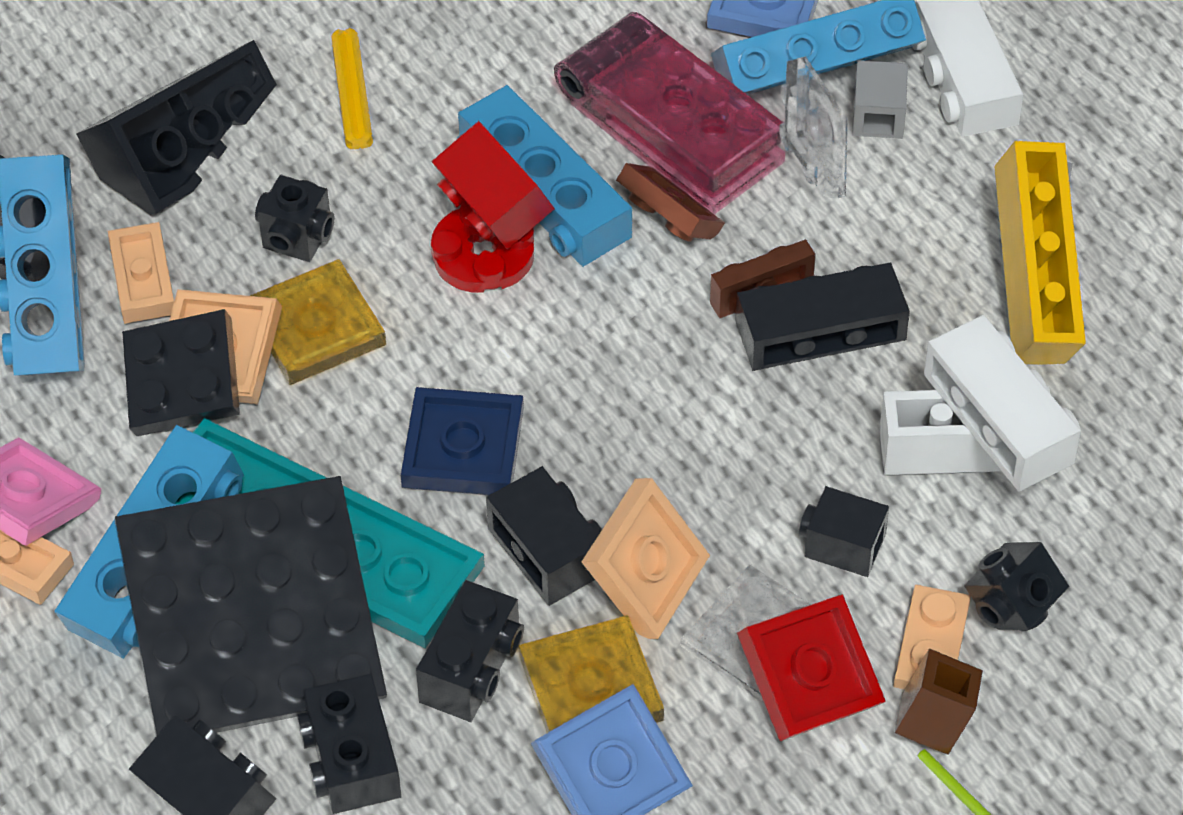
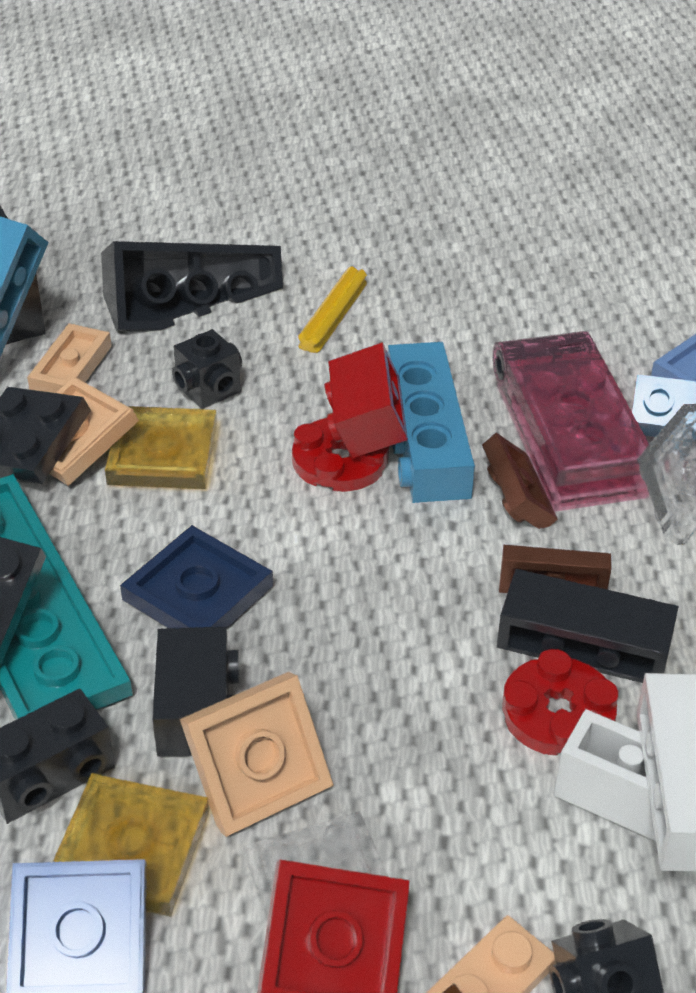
camera: 30 degrees right, 10 degrees down
(823, 373) = (556, 677): none -> red plate
(844, 531) = (471, 826): black brick -> none

